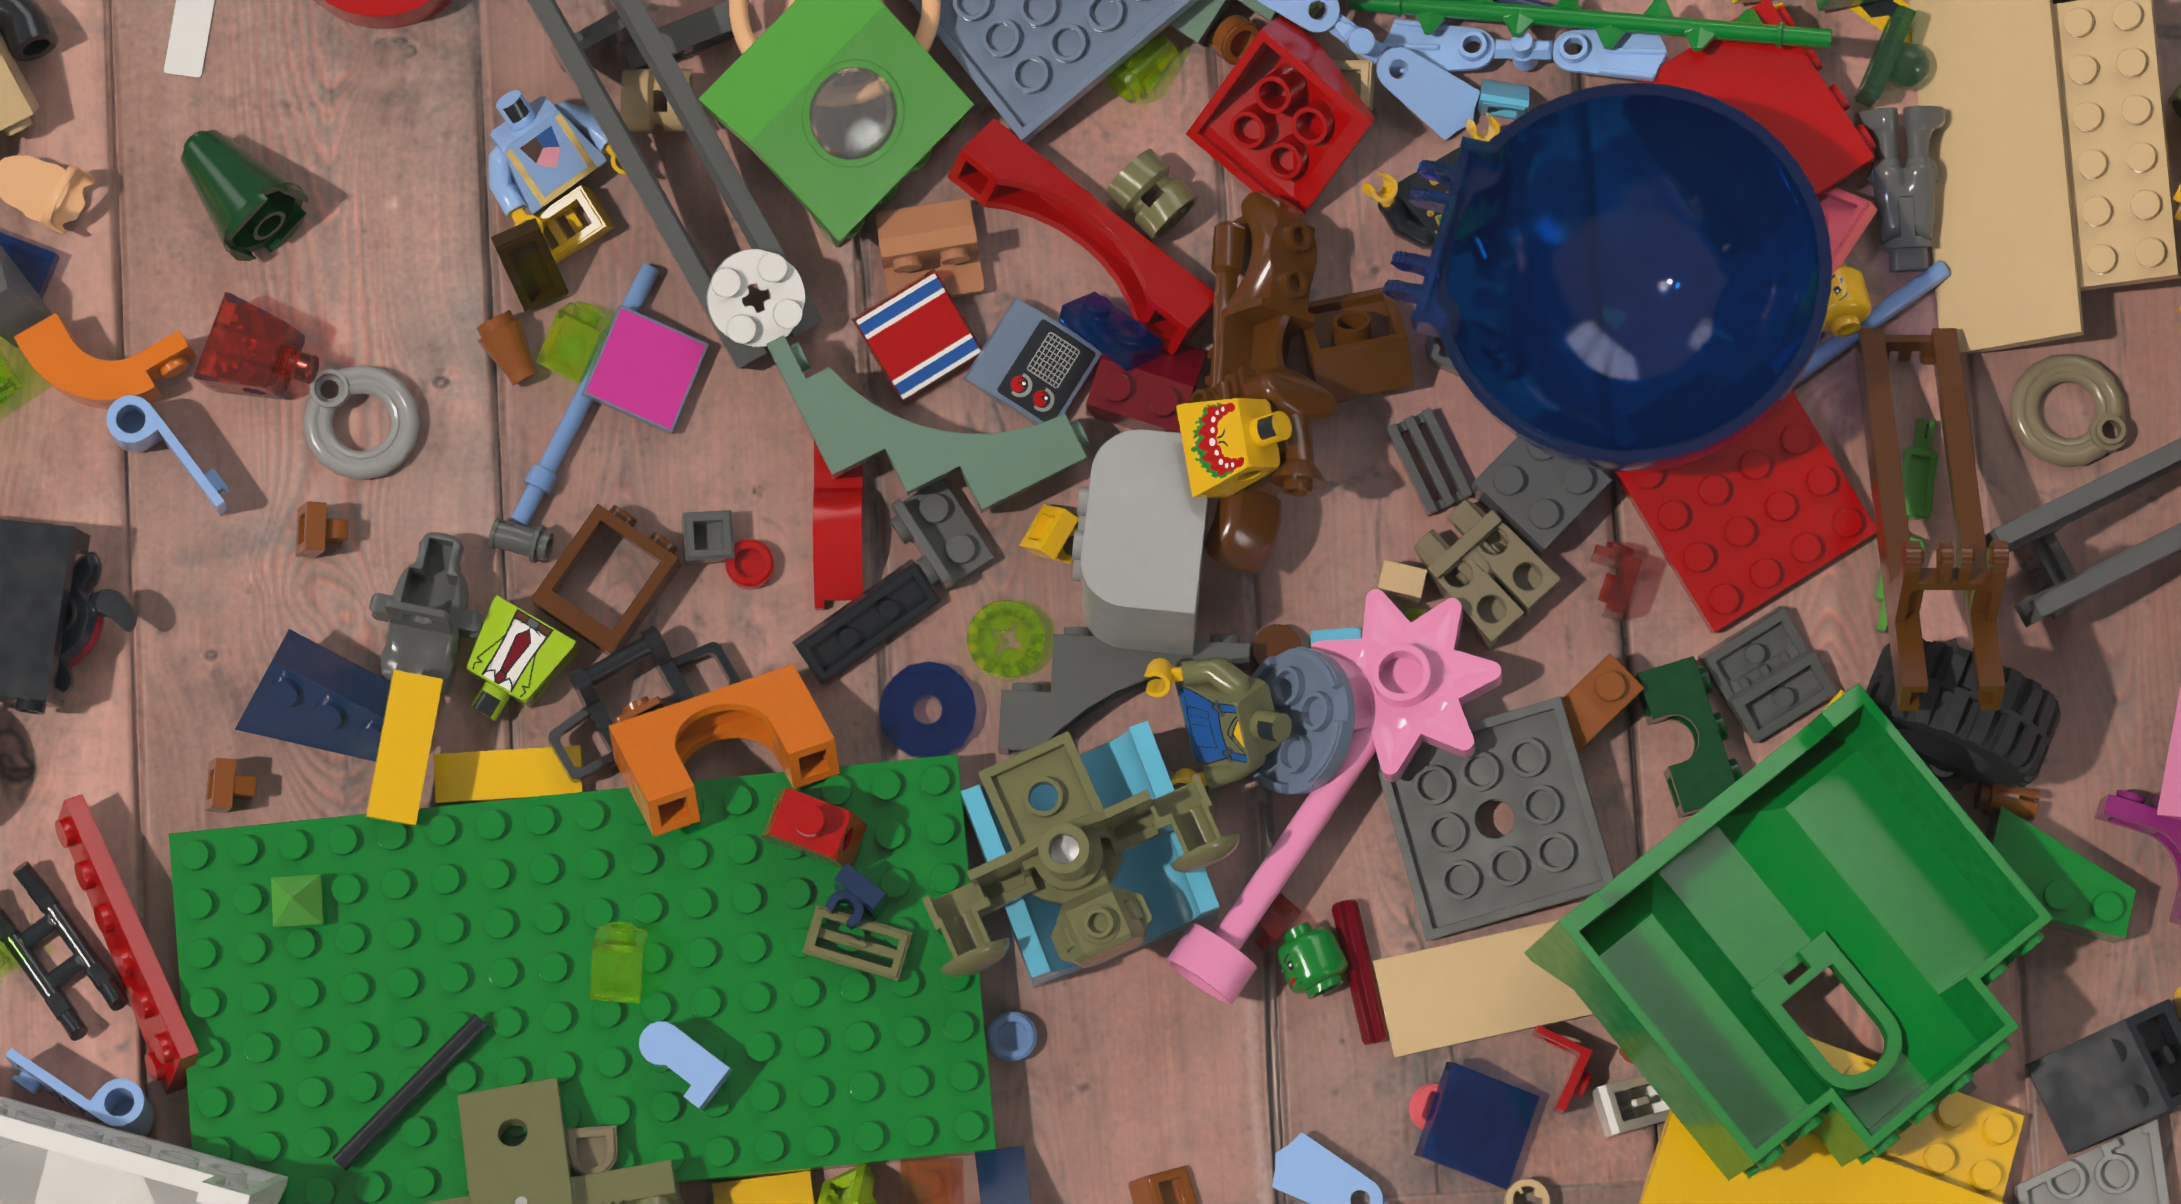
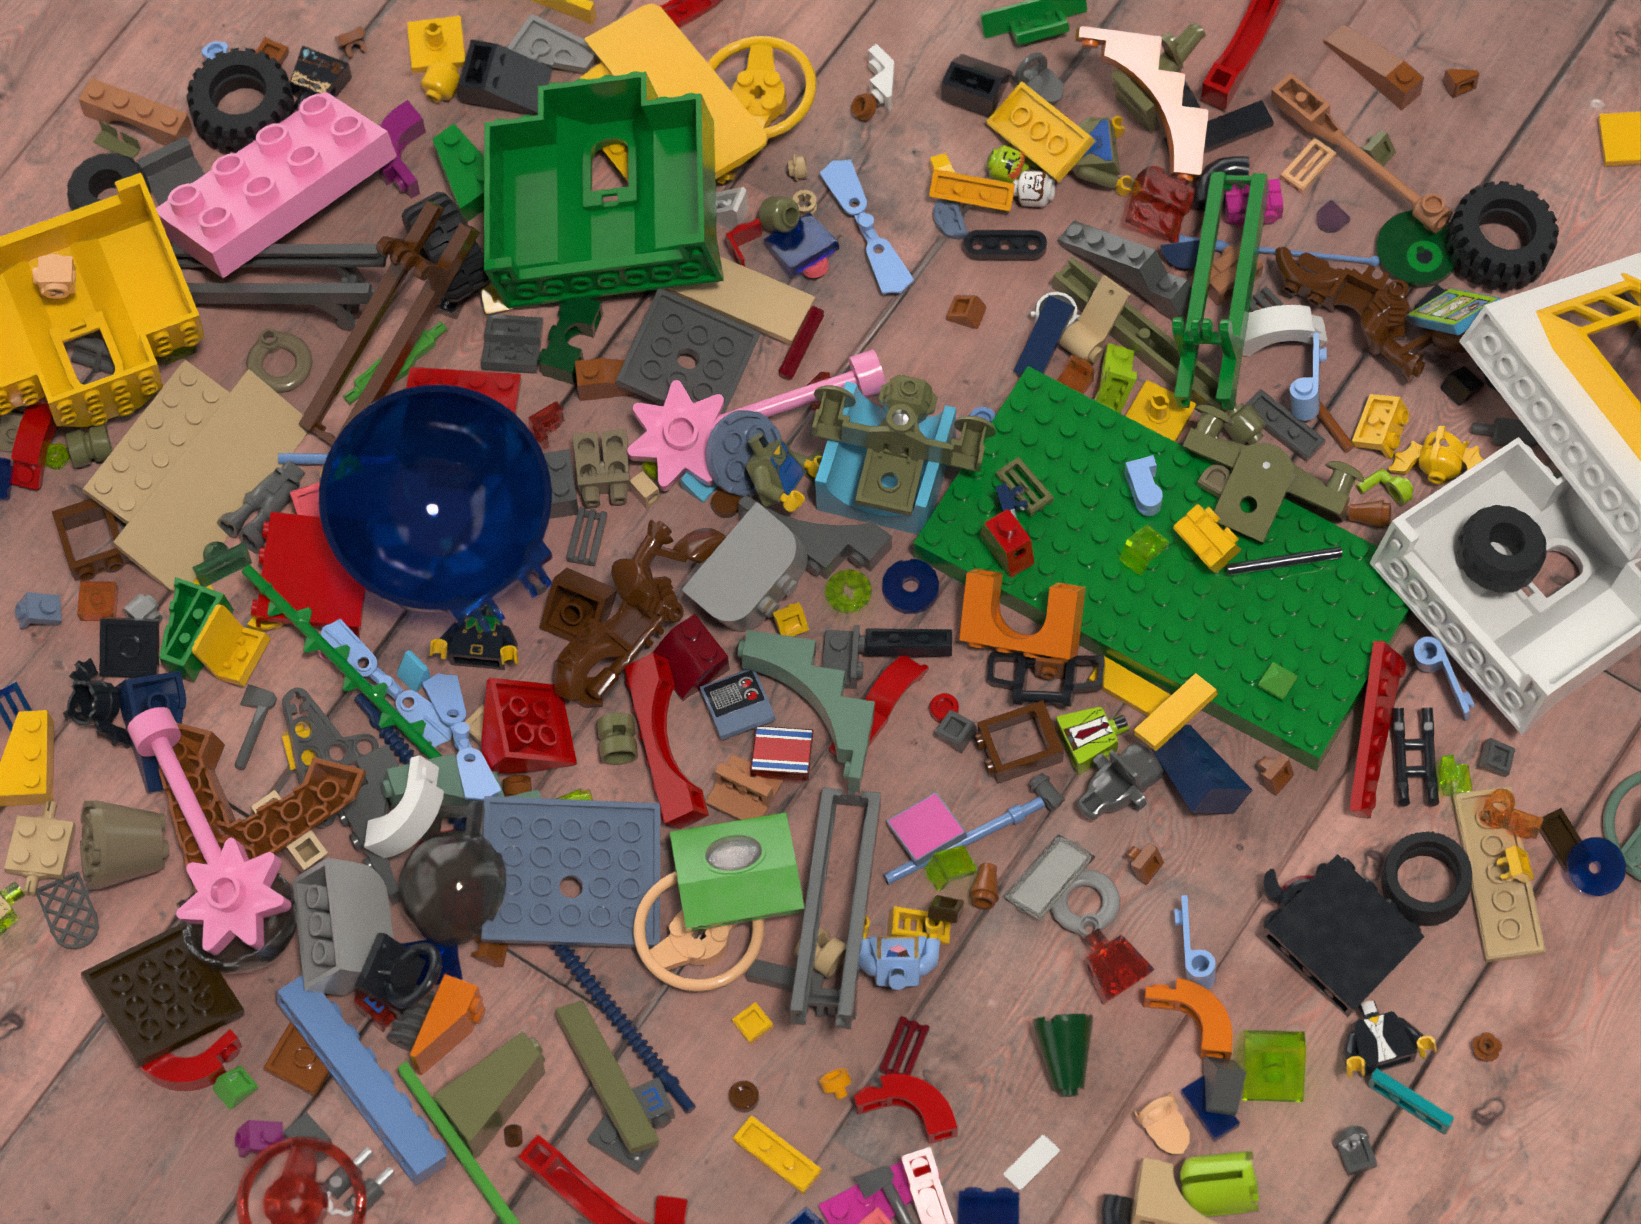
camera: 140 degrees left, 15 degrees down
(432, 421) = (1049, 876): none -> clear smoke piece
(448, 18) = (913, 1026): none -> dark red tile
(535, 1038) = (1207, 538): none -> yellow brick
(731, 284) = (847, 797): white plate -> none
(1111, 331) = (688, 687): clear blue plate -> none
(1230, 443) = (677, 567): yellow torso -> none
(1311, 960) = (819, 355): green head -> none
(1543, 1146) = (779, 214): none -> olive head

